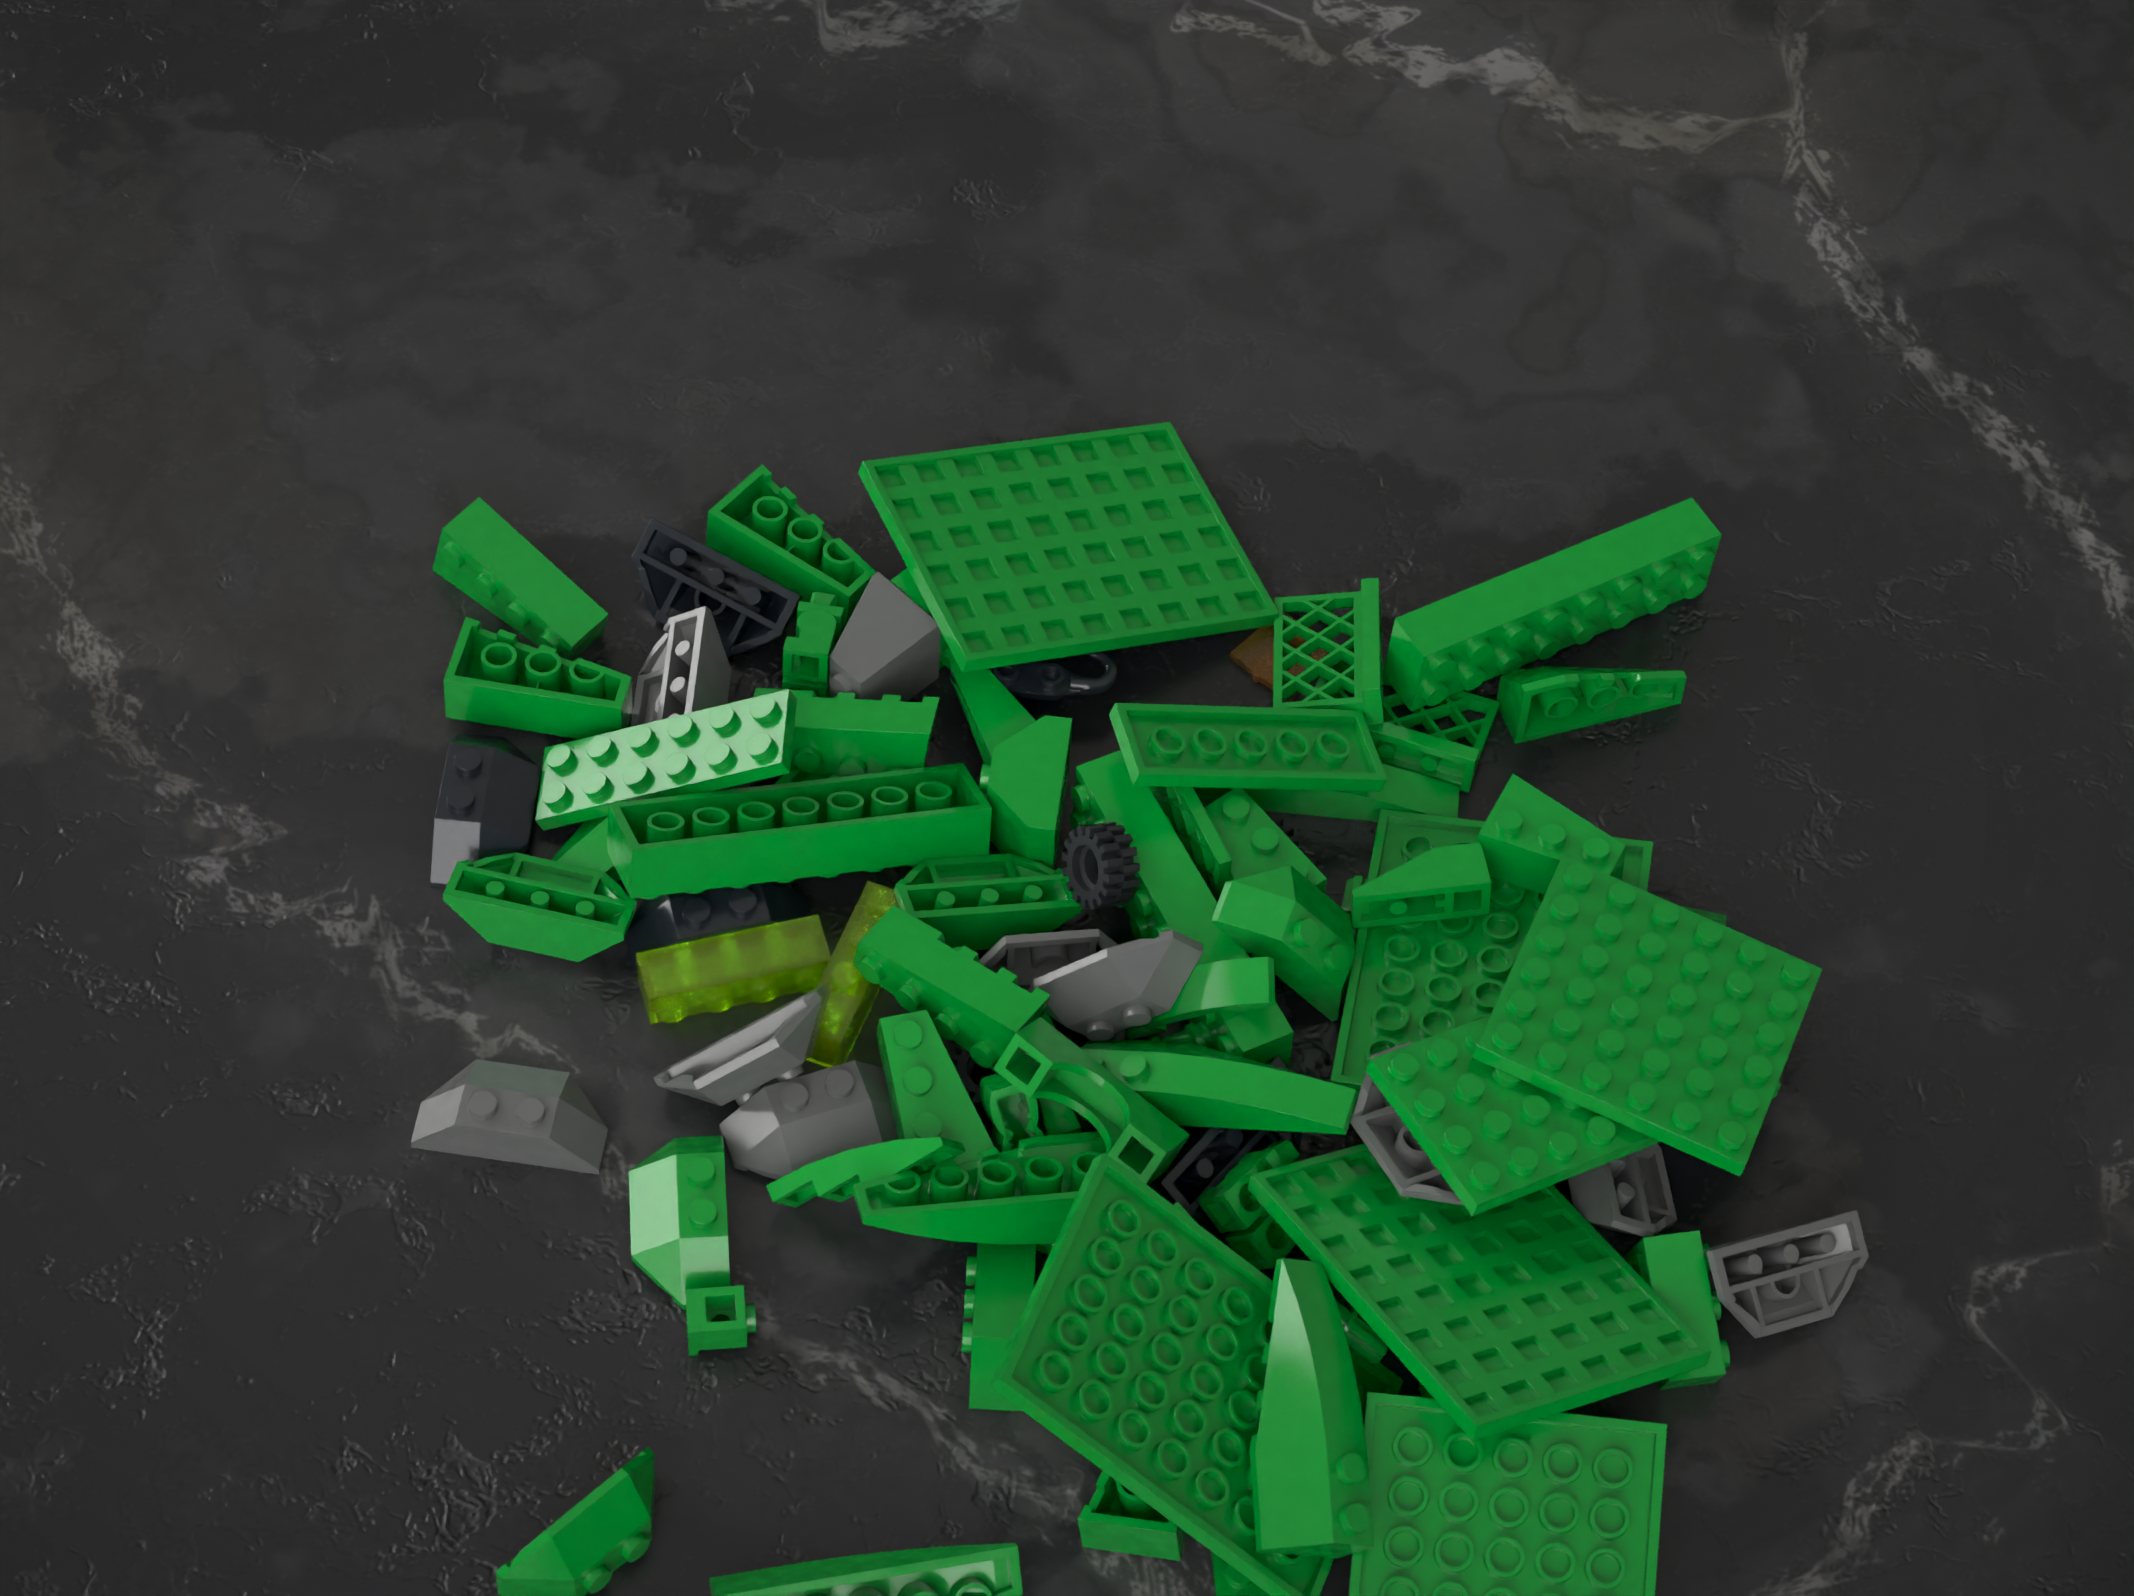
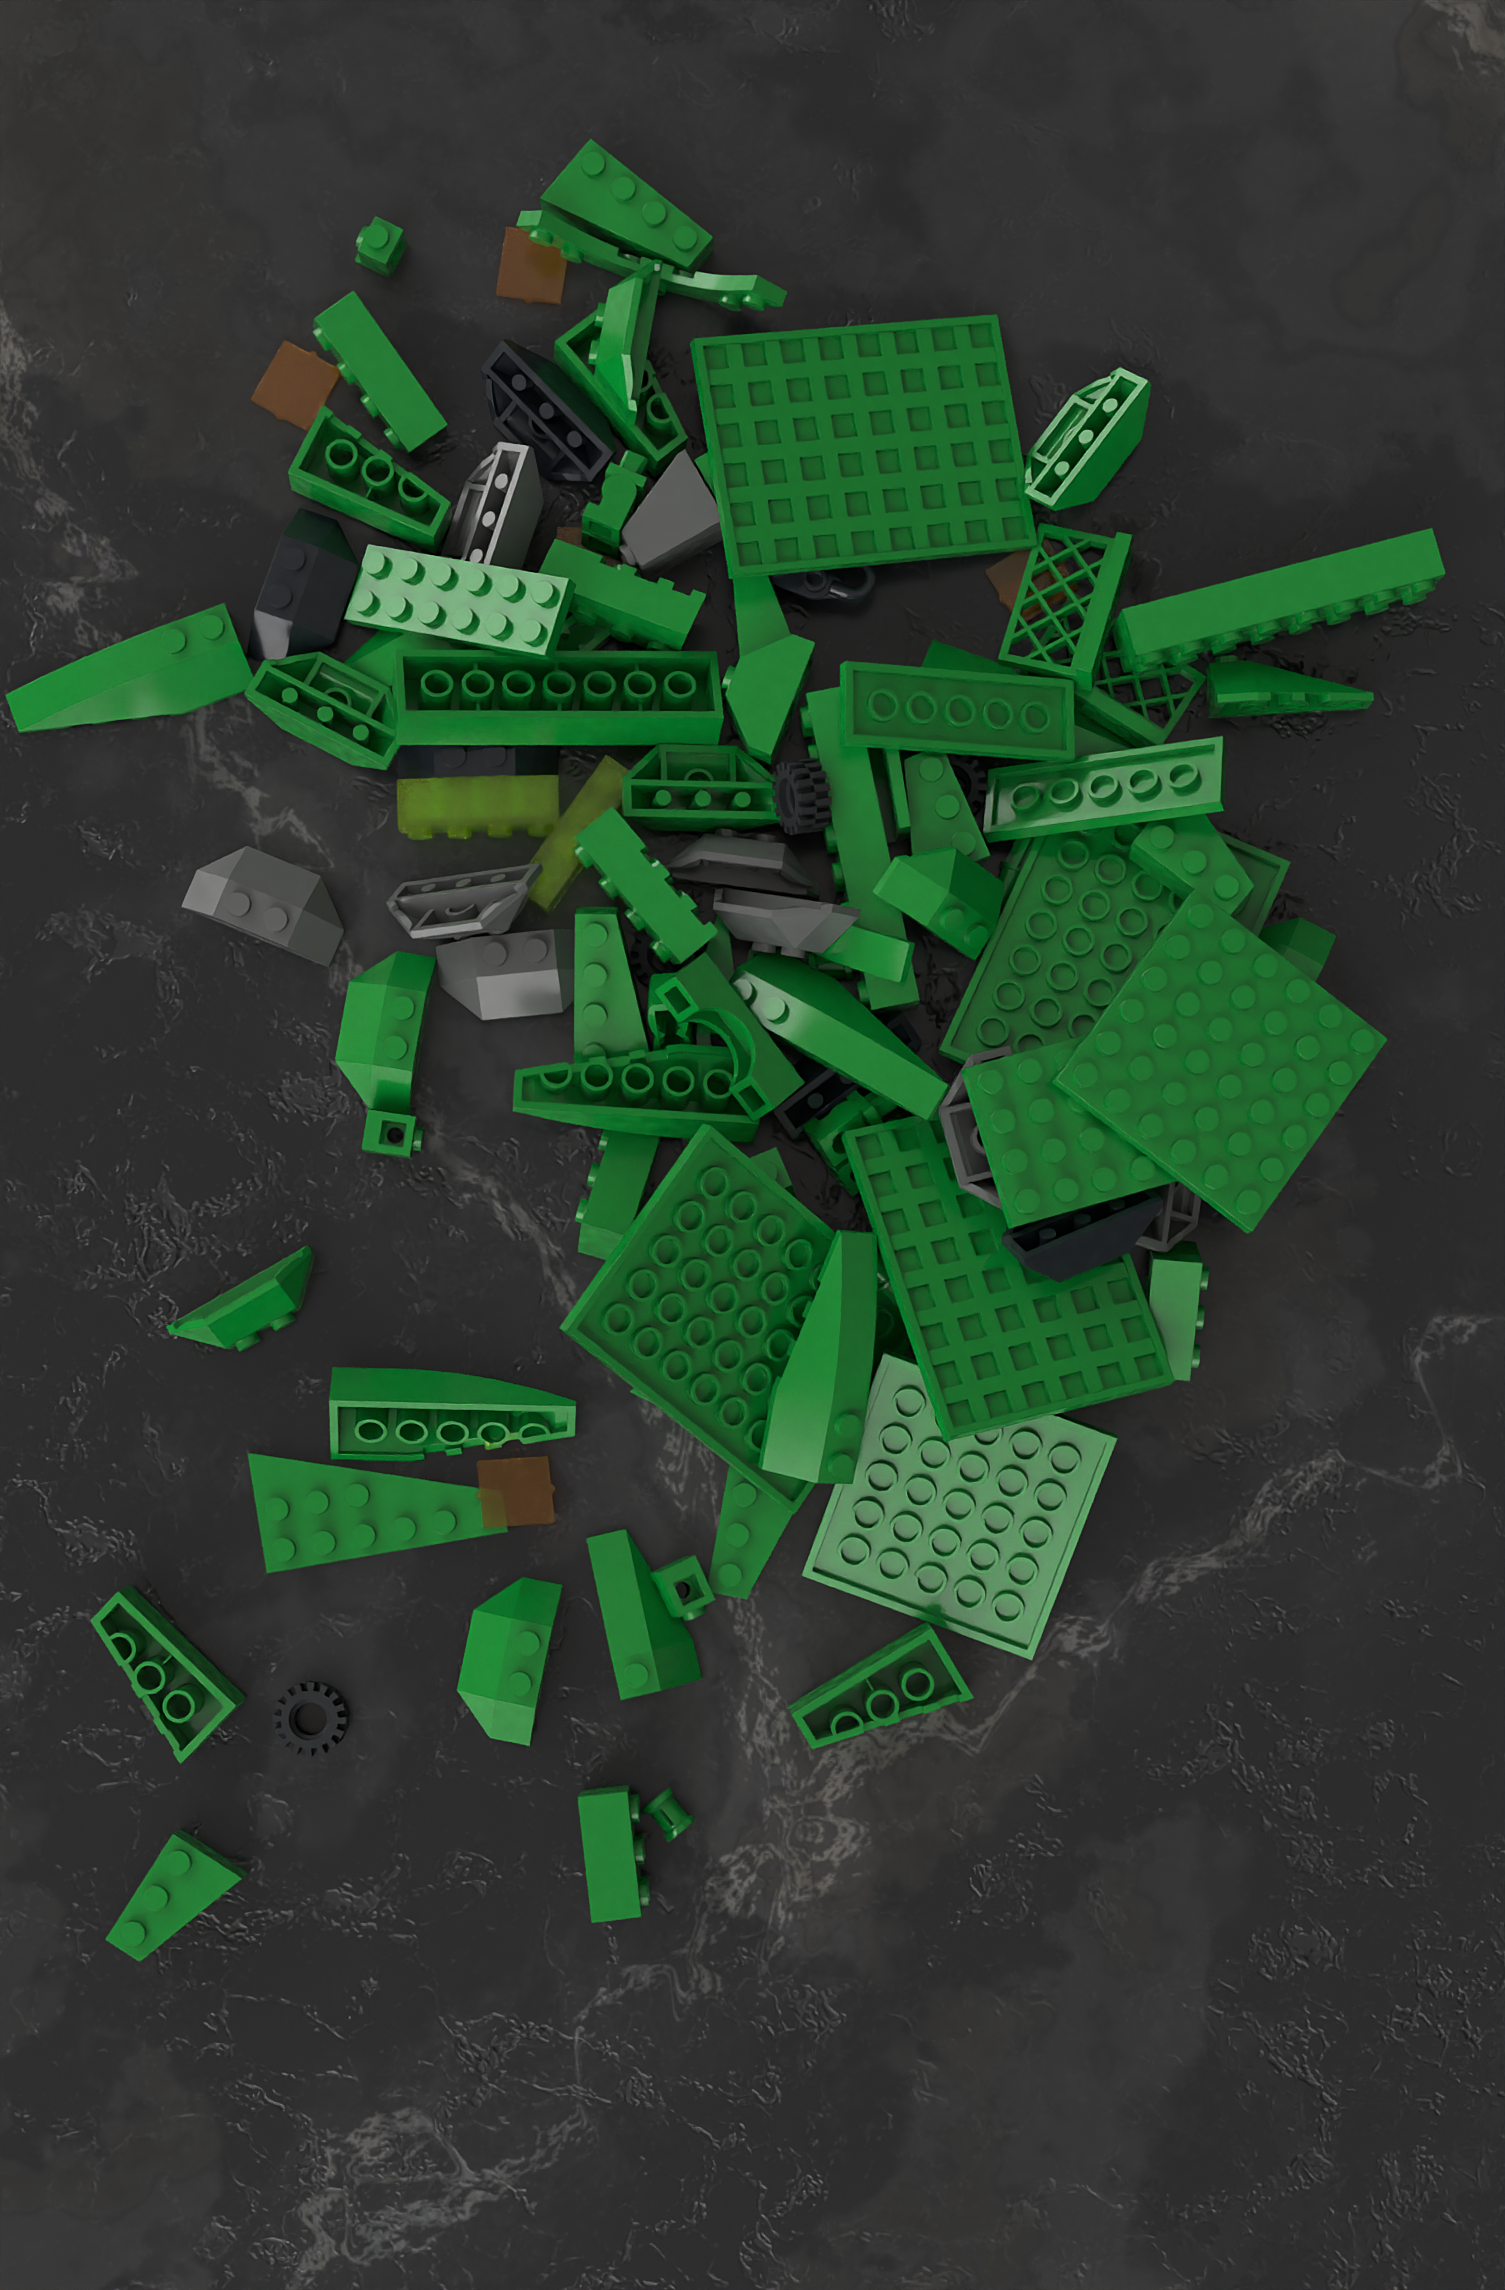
camera: 20 degrees right, 30 degrees up
(325, 913) = (141, 677): none -> green wedge
(426, 624) = (296, 385): none -> clear orange piece
(493, 476) = (381, 246): none -> green brick
(661, 473) = (530, 269): none -> clear orange piece
(752, 401) = (619, 207): none -> green wedge
(785, 489) = (625, 338): none -> green wedge
(795, 451) = (577, 246): none -> green plate
(836, 1175) = (542, 1041): green slope -> none
(1305, 505) = (1087, 441): none -> green wedge
(1427, 888) = (1086, 874): green slope -> none
(1432, 799) = (1106, 790): none -> green plate
(1558, 1217) = (1083, 1238): none -> black wedge
(1789, 1272) = (1269, 1297): dark grey wedge -> none

